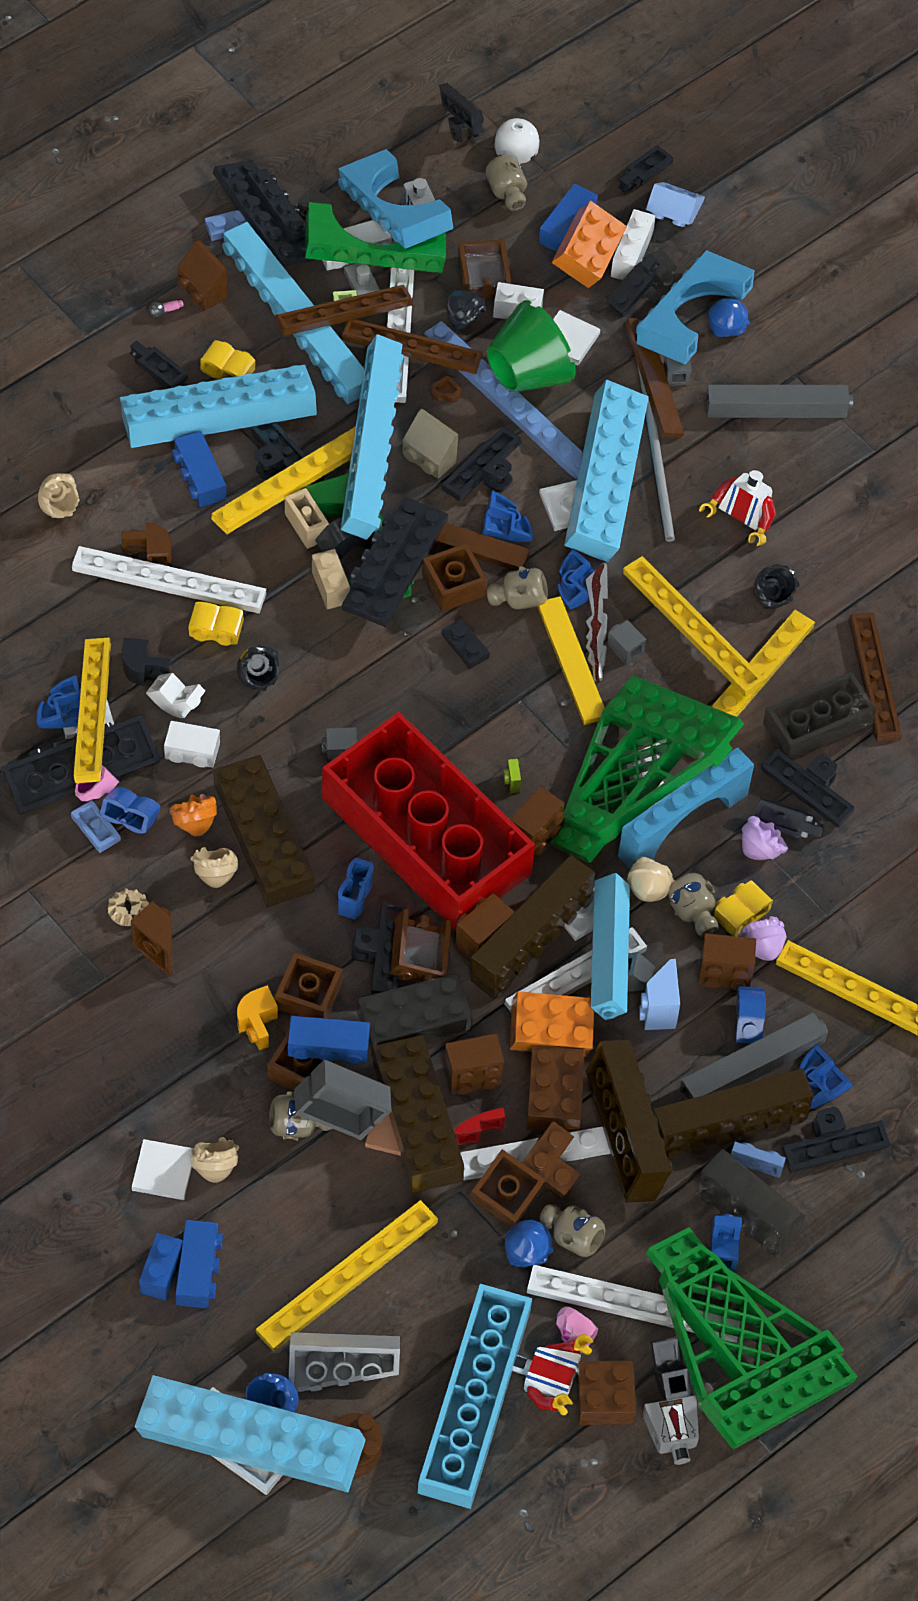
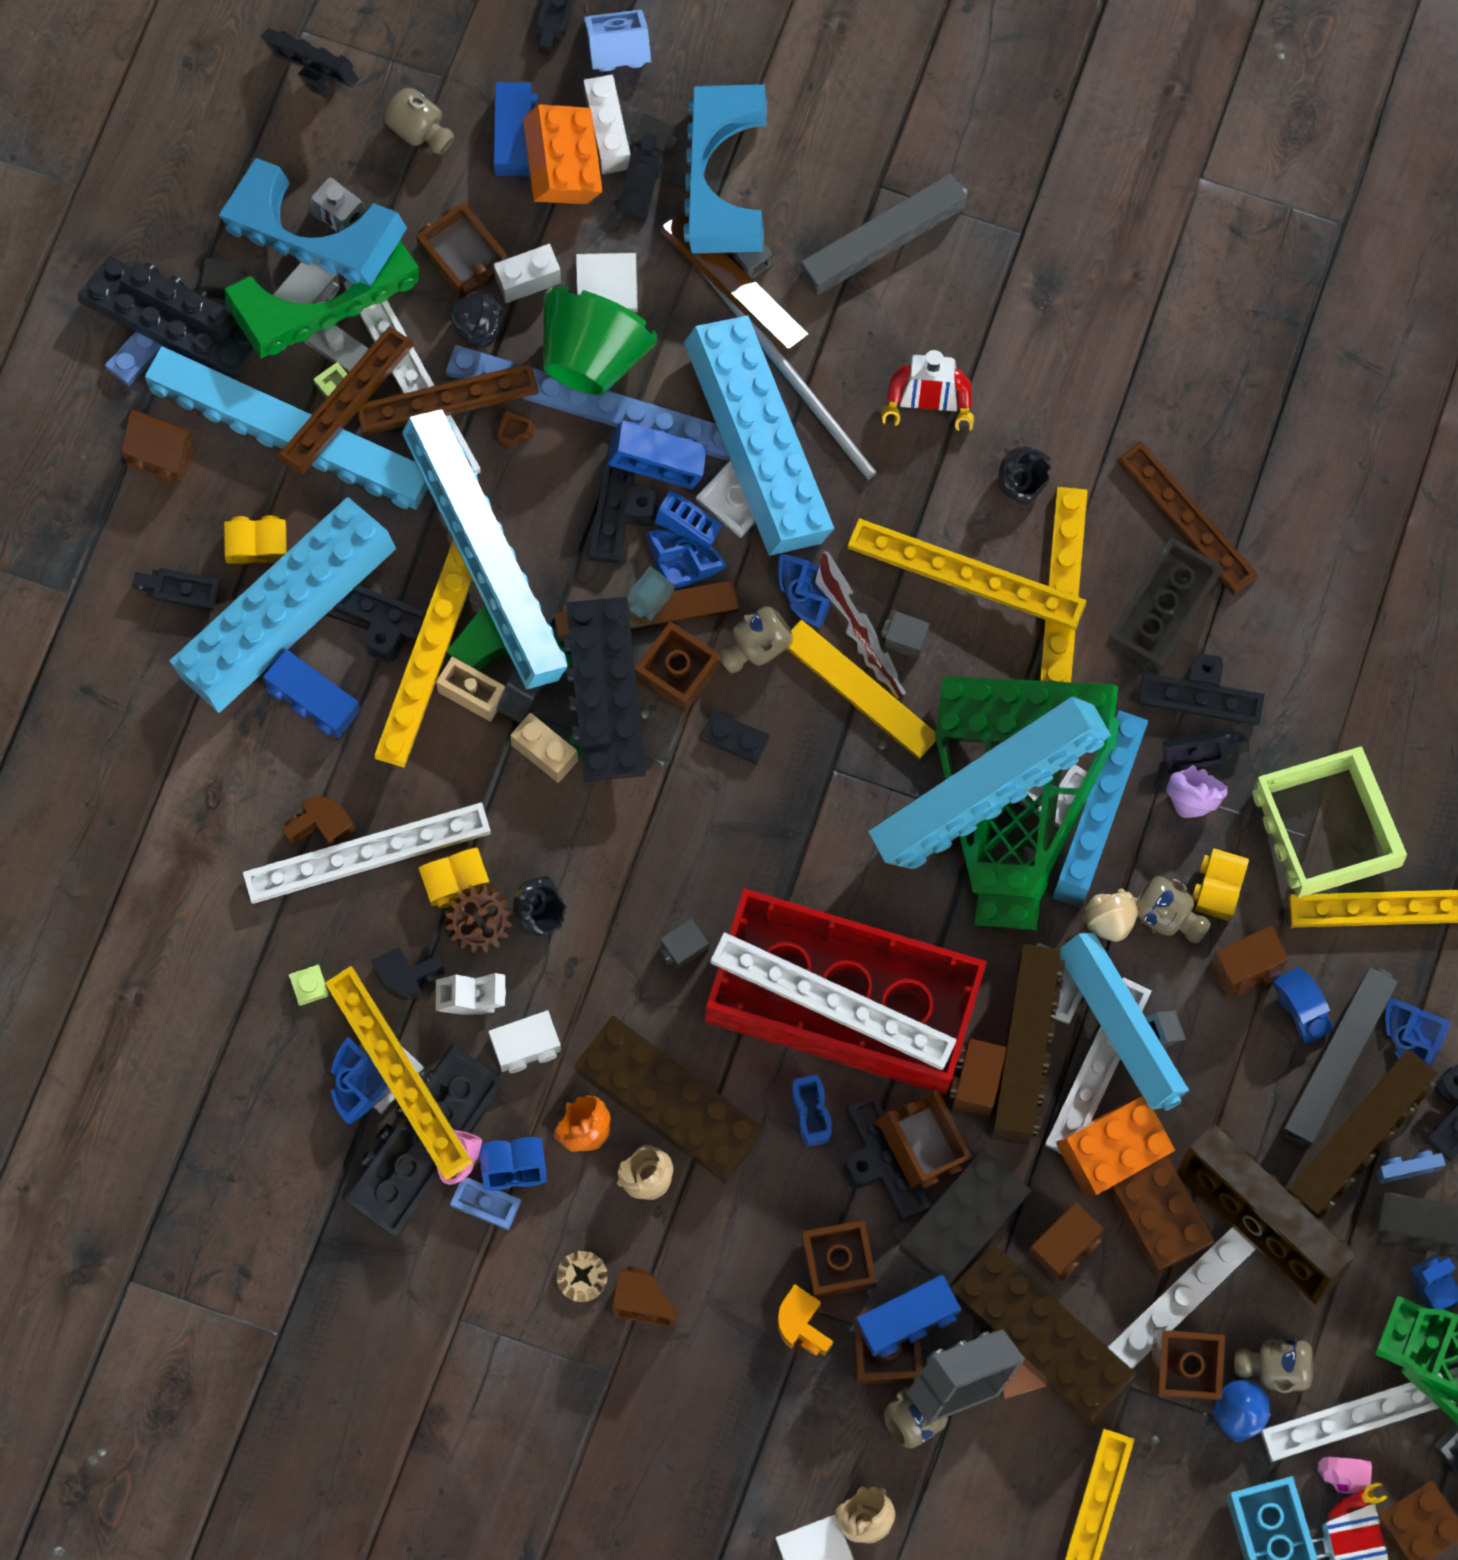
camera: 30 degrees left, 15 degrees up
(58, 495) = (180, 824): tan hair -> none
(74, 637) = (309, 985): none -> yellowish green plate
(157, 309) = (129, 514): piece -> none
(204, 664) = (481, 901): none -> reddish brown gear
(410, 808) = (833, 1001): none -> white plate
(430, 445) = (548, 517): dark tan slope -> none
(466, 524) = (649, 594): none -> clear light blue brick
(471, 1129) = (1106, 1313): red slope -> none
(512, 776) = (888, 874): lime plate -> none
(518, 139) = (391, 58): white cylinder -> none
(518, 491) = (670, 518): none -> blue slope
(529, 445) = (657, 454): none -> brick
(540, 818) = (953, 916): reddish brown brick -> none
(546, 1161) = (1204, 1307): reddish brown brick -> none
(614, 740) = (990, 784): none -> medium azure brick
(661, 999) = (1209, 1046): light blue slope -> none
(728, 318) = (767, 158): blue hair -> none
(769, 937) = (1271, 908): lavender hair -> none
(856, 873) = (1374, 804): none -> yellowish green window

